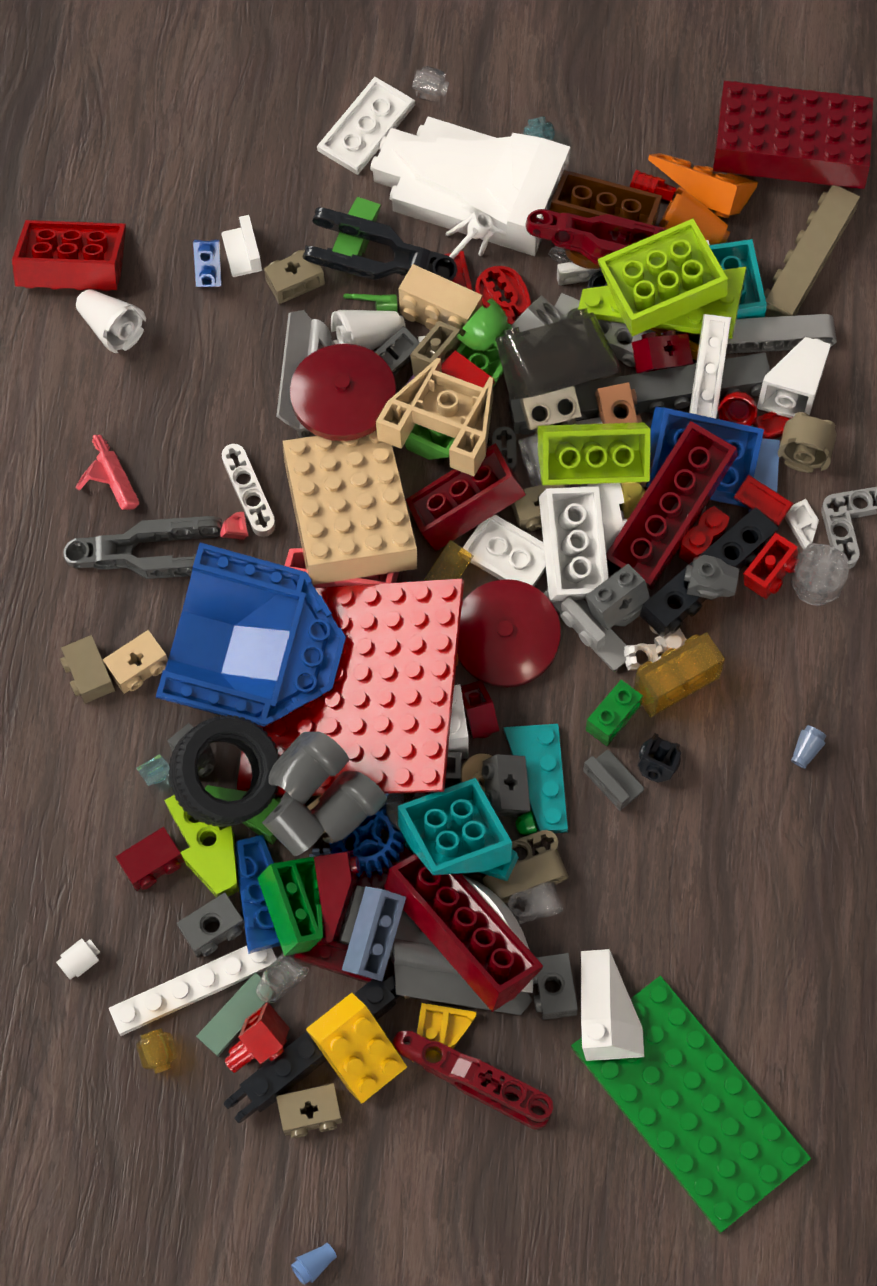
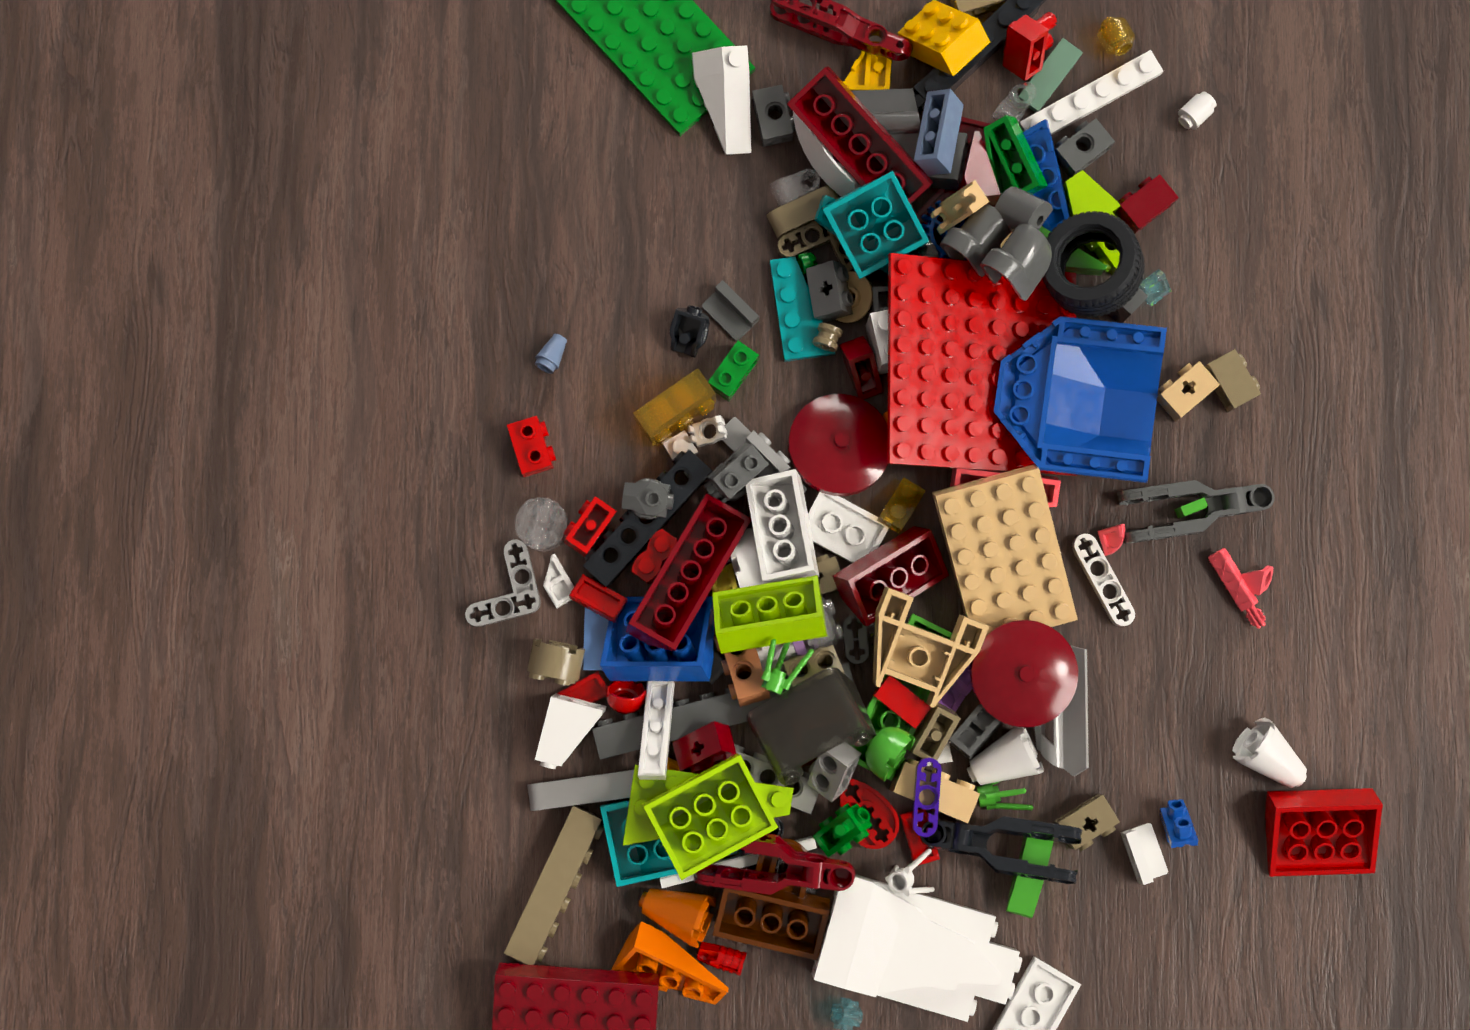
camera: 170 degrees right, 15 degrees up
(150, 547) = (1191, 508): none -> bright green tile
(359, 841) = (960, 206): none -> tan hinge
(448, 275) = (933, 818): none -> dark purple beam
(511, 736) = (827, 337): none -> dark tan wheel
(529, 277) = (839, 832): none -> green brick
(591, 393) = (774, 678): none -> bright green plant
(830, 653) = (530, 446): none -> red brick

